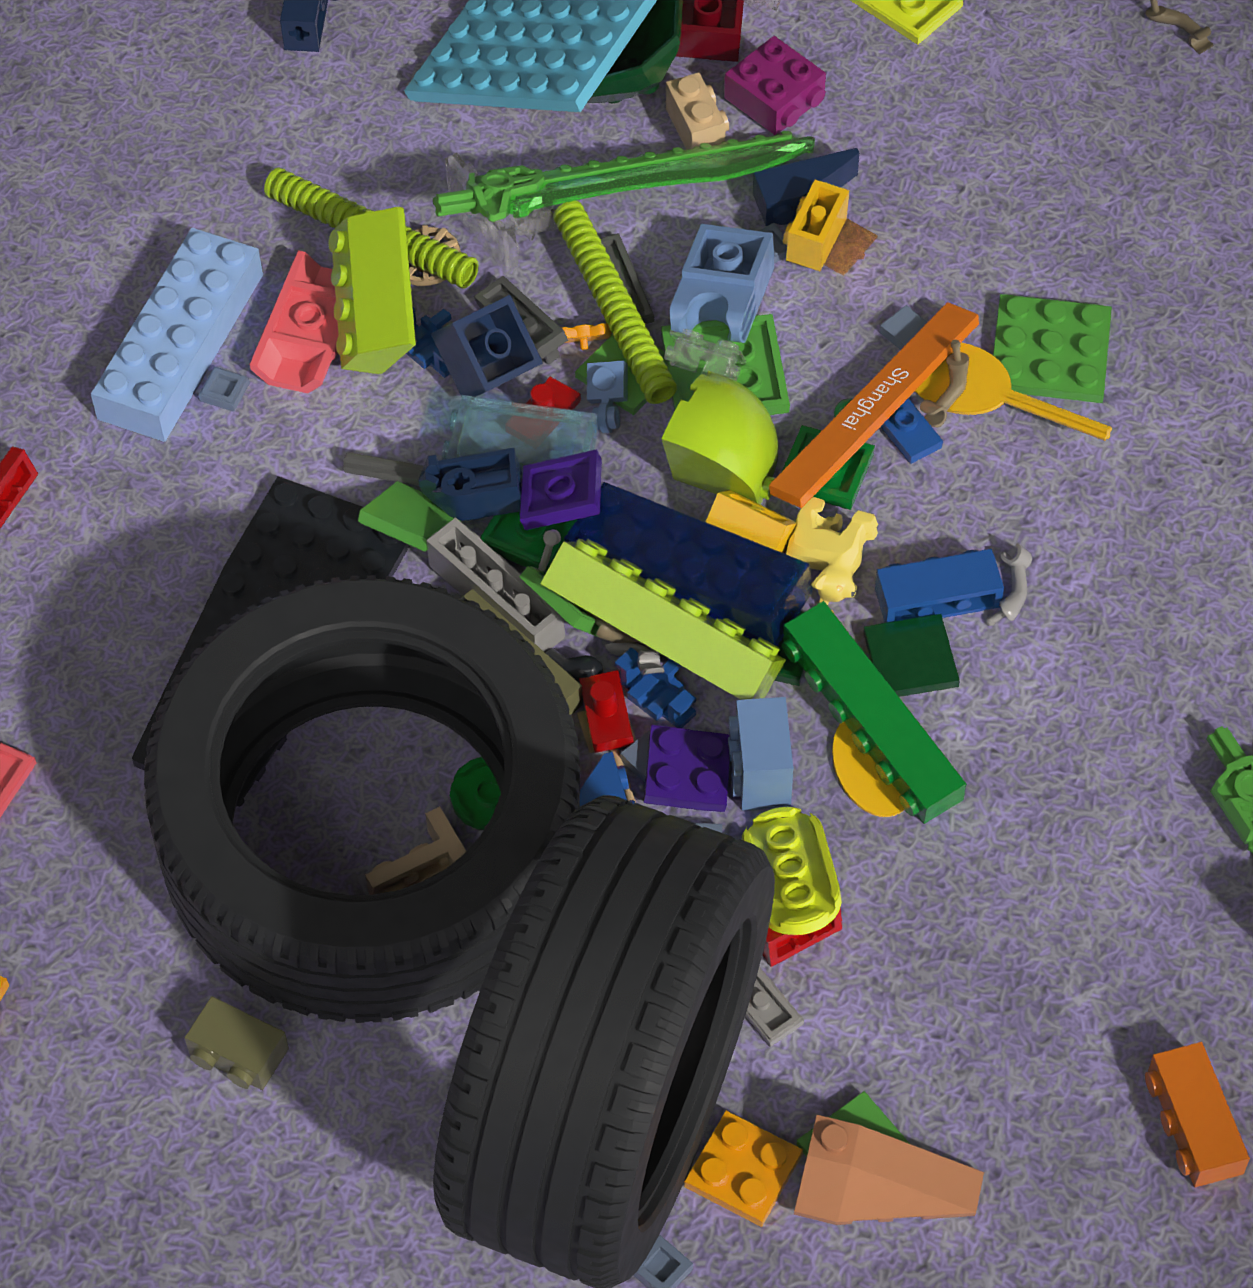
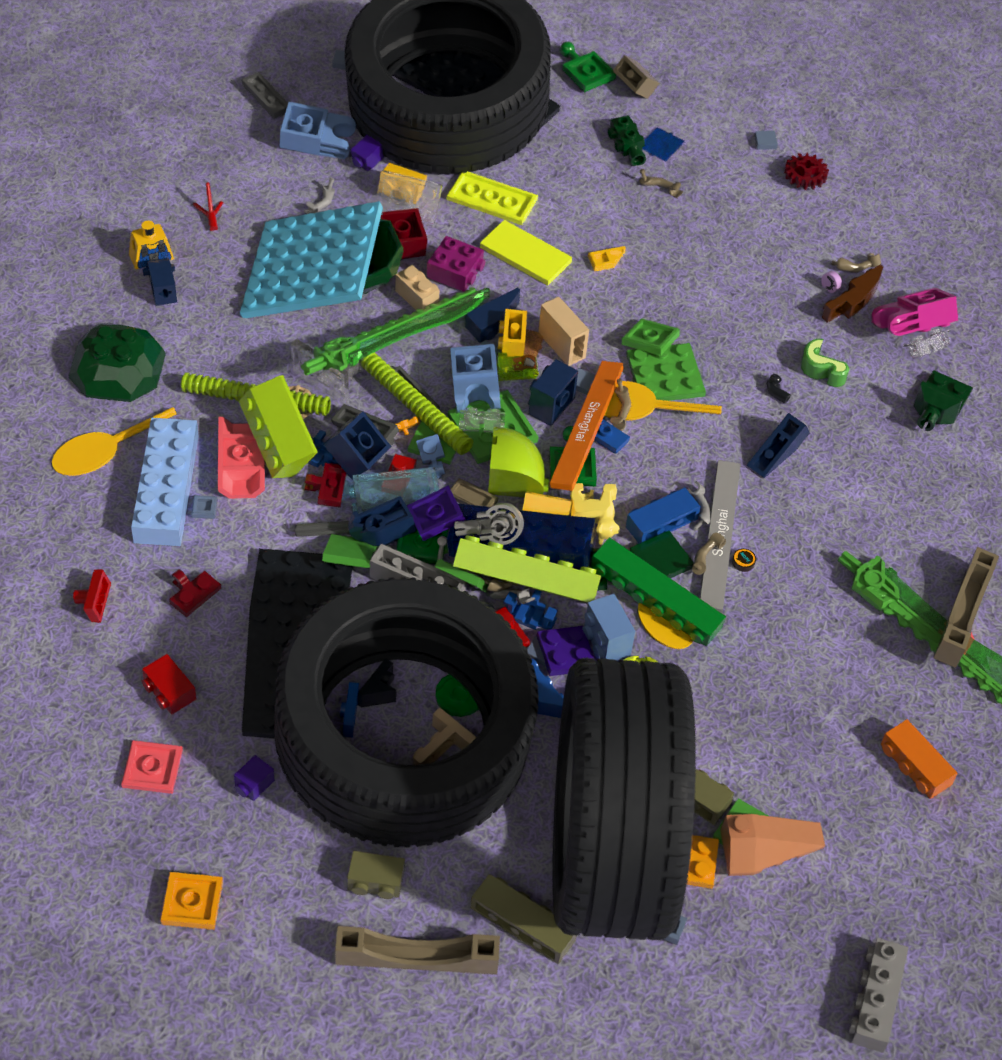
camera: 25 degrees left, 5 degrees down
(52, 655) = (169, 684): none -> red brick
(101, 256) = (96, 449): none -> yellow piece
(116, 838) = (253, 778): none -> dark purple brick
(151, 520) = (192, 593): none -> dark red plate
(186, 127) = (117, 363): none -> dark green rock
(302, 1208) = (371, 949): none -> dark tan arch
(306, 771) = (349, 710): none -> blue plate
(357, 748) = (378, 688): none -> black slope
(407, 1152) = (521, 918): none -> olive brick
(424, 404) = (330, 485): none -> dark red plate
(636, 532) = (496, 524): none -> light grey pin
(645, 475) = (472, 495): none -> dark tan tile
(804, 280) = (516, 367): none -> clear neon green leg
(807, 1069) = (711, 797): none -> olive brick
(840, 336) = (552, 392): none -> dark blue brick
(900, 238) = (563, 331): none -> tan brick
(903, 92) = (525, 252): none -> neon yellow tile
(967, 682) = (699, 565): none -> dark tan piece
(1024, 645) = (722, 522): none -> light grey tile
(1033, 130) = (606, 258): none -> yellow tile
(1047, 696) = (743, 560): none -> dark brown tile
(1048, 281) = (650, 336): none -> bright green tile
(1188, 518) = (779, 445): none -> dark blue slope
(1226, 418) = (775, 390): none -> black arm

